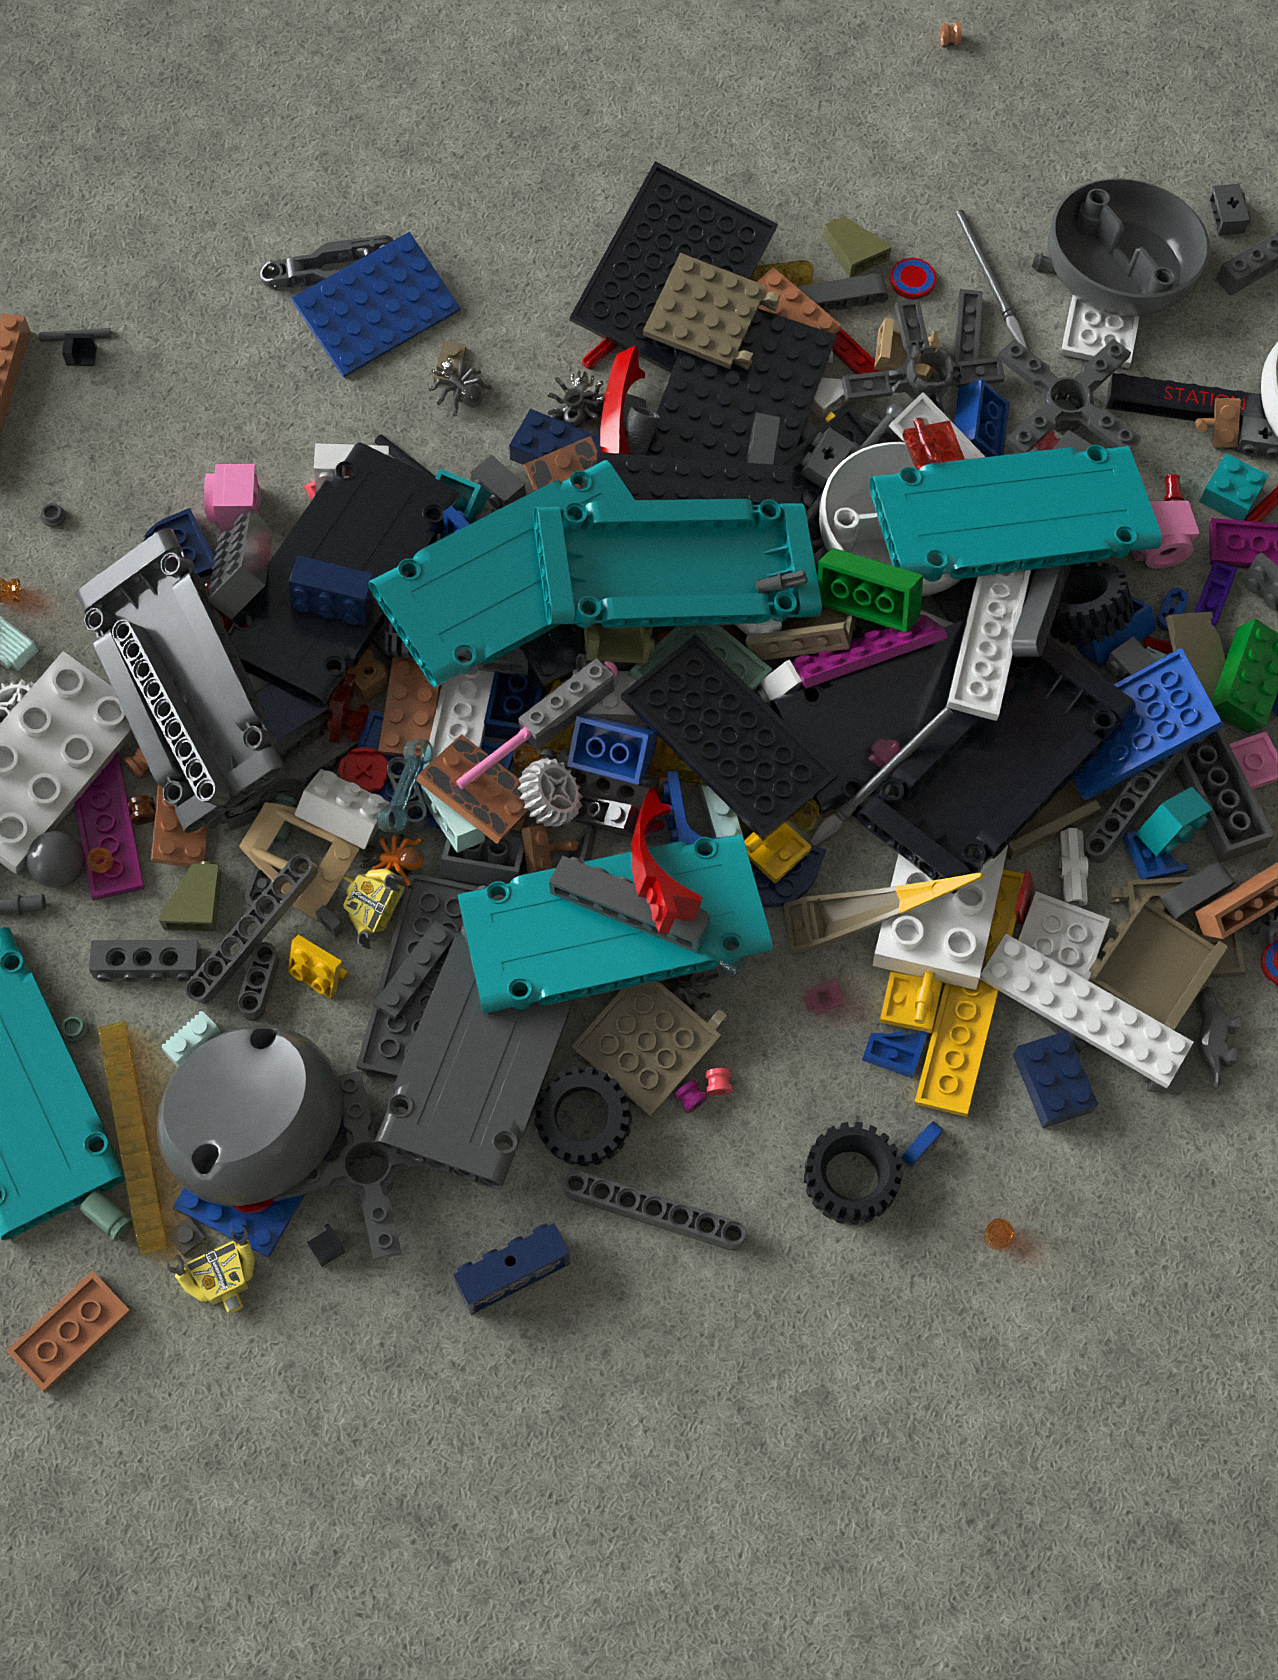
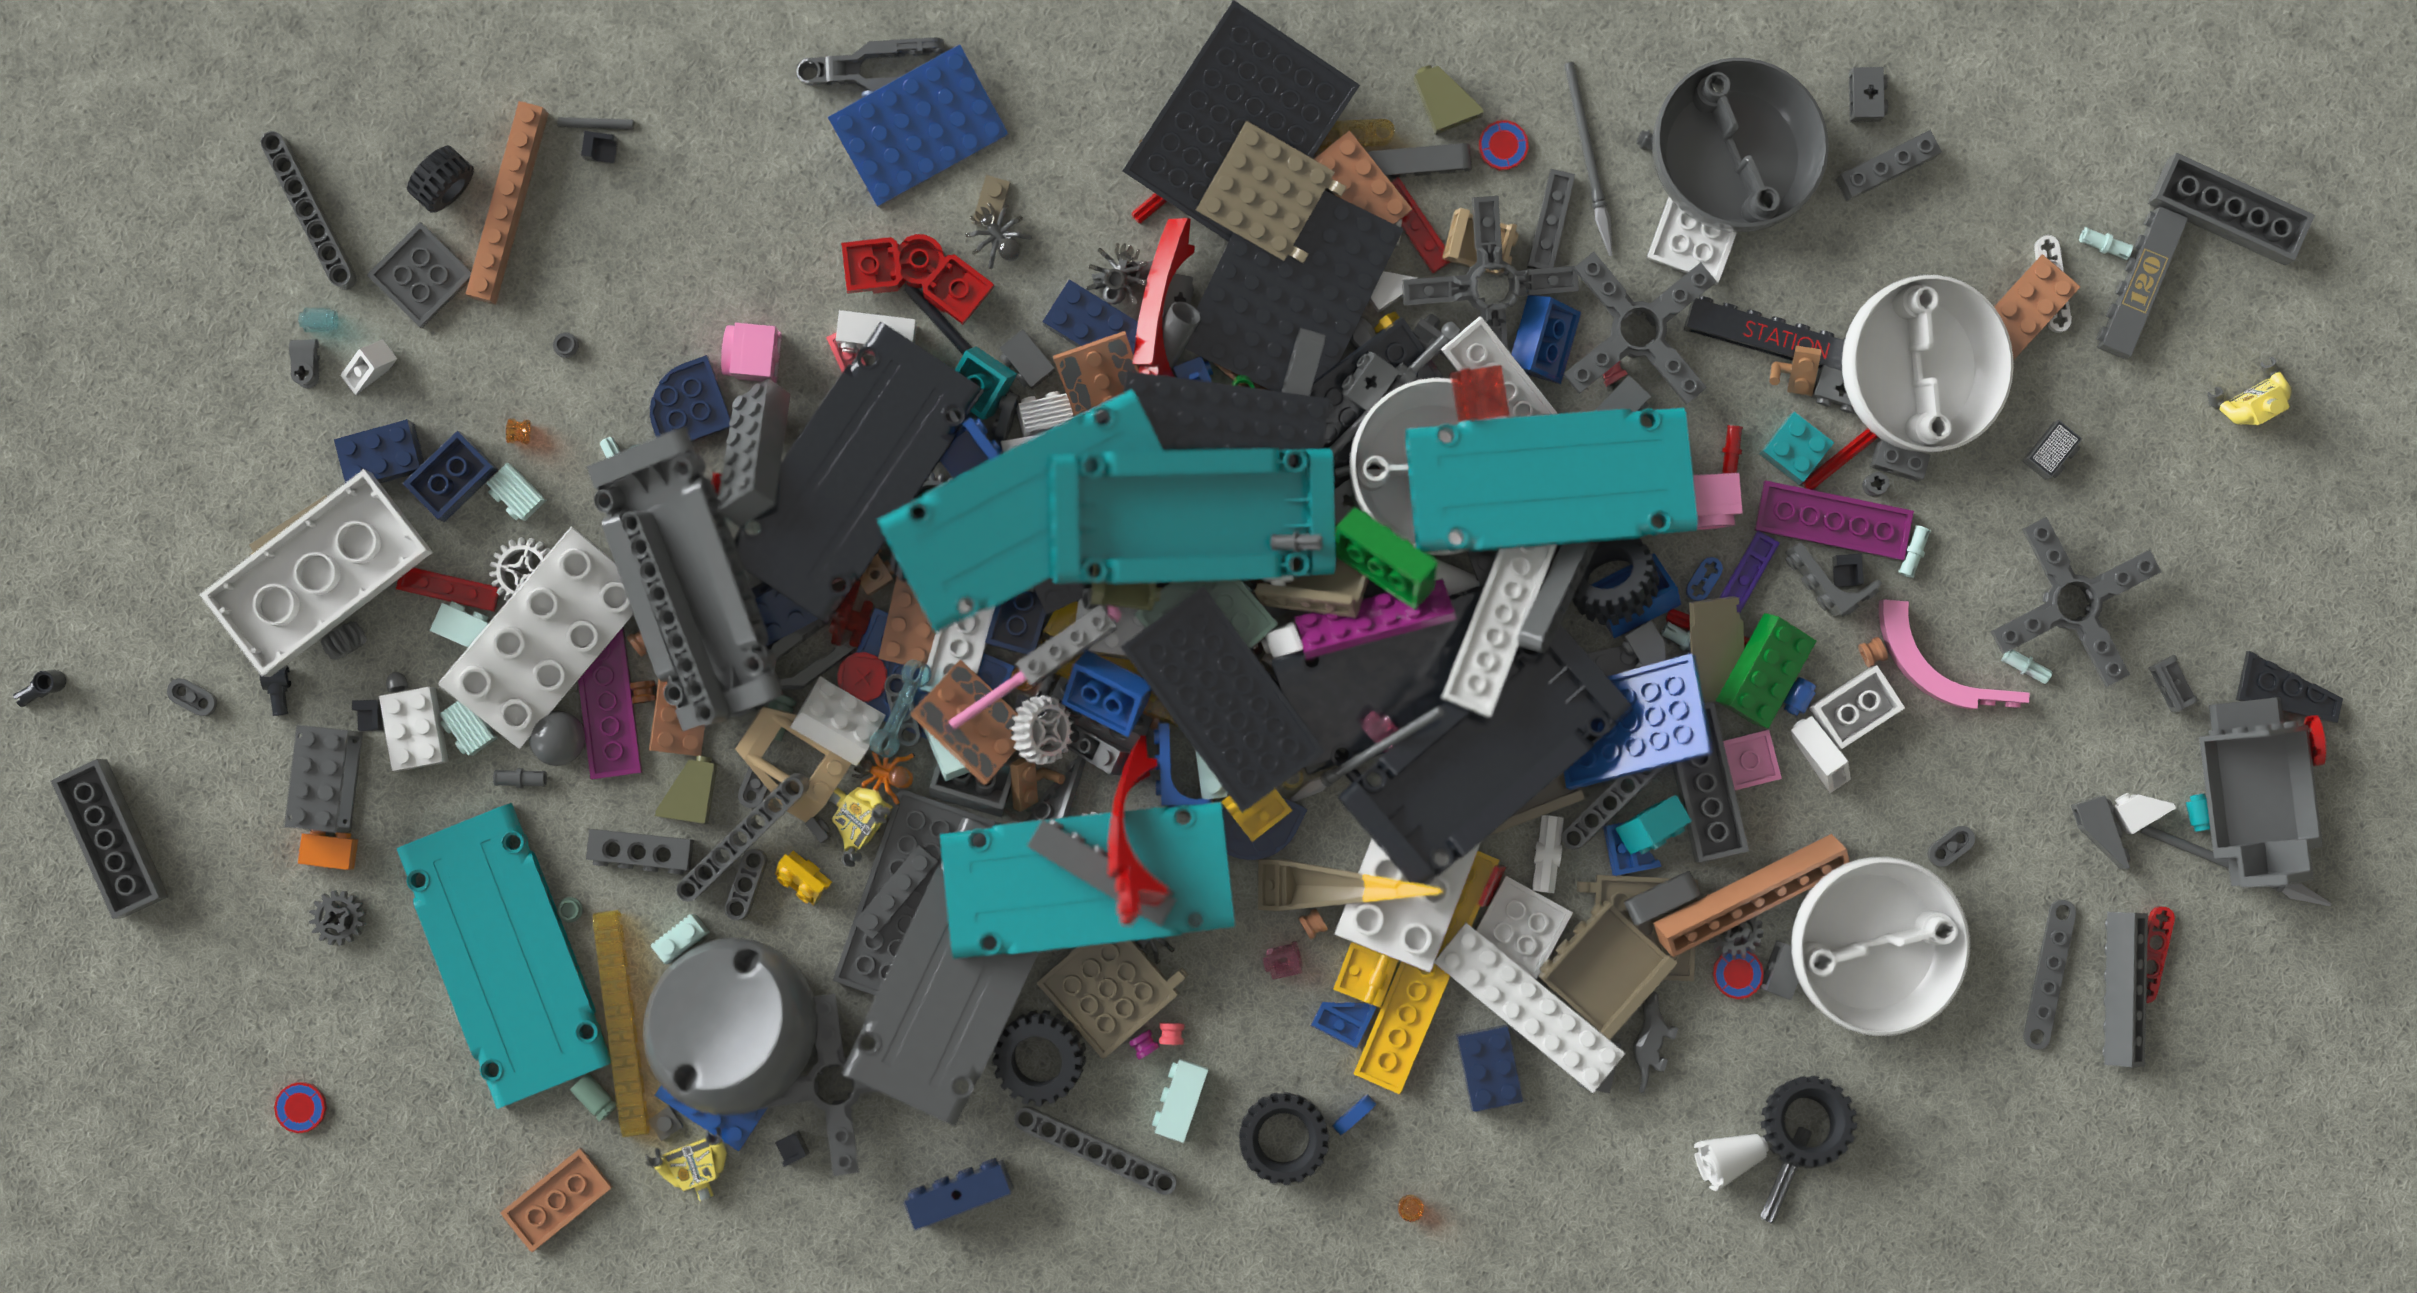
camera: 10 degrees right, 20 degrees up
(98, 853) = (592, 744): clear orange plate -> none
(330, 590) = (840, 512): dark blue brick -> none
(385, 415) = (885, 266): none -> red plate
(737, 1148) = (1180, 1100): none -> light aqua brick
(849, 958) = (1313, 923): none -> nougat wheel

